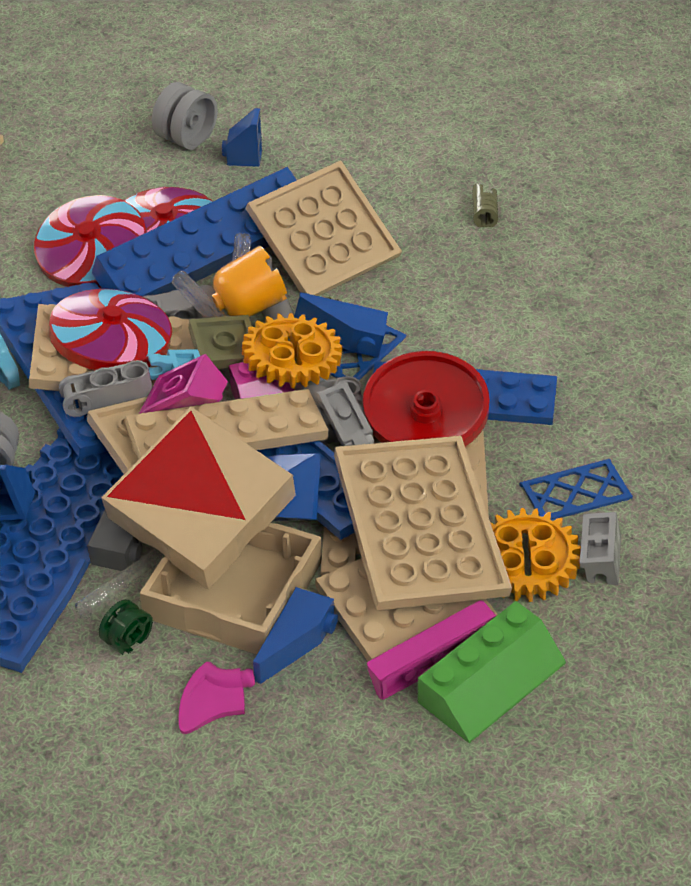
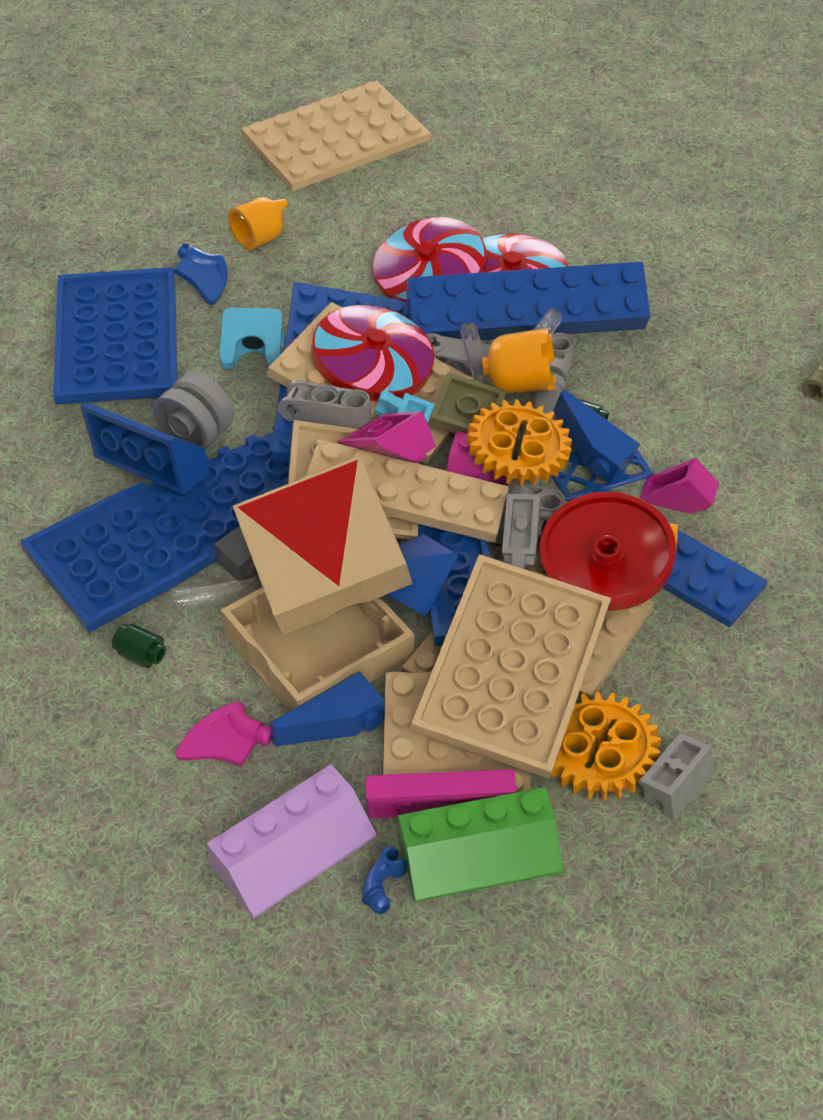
camera: 30 degrees right, 5 degrees up
(80, 659) = (139, 645): none -> dark green brick
(126, 626) = (193, 634): dark green wheel -> none
(184, 115) = (596, 175): light grey wheel -> none
(244, 141) = (636, 223): blue slope -> none
(323, 230) = (640, 338): tan plate -> none
(337, 746) = (290, 841): none -> lavender slope
(431, 748) = (385, 866): none -> blue piece
(442, 331) = (682, 488): none -> dark pink slope
(568, 508) = (682, 719): blue window -> none

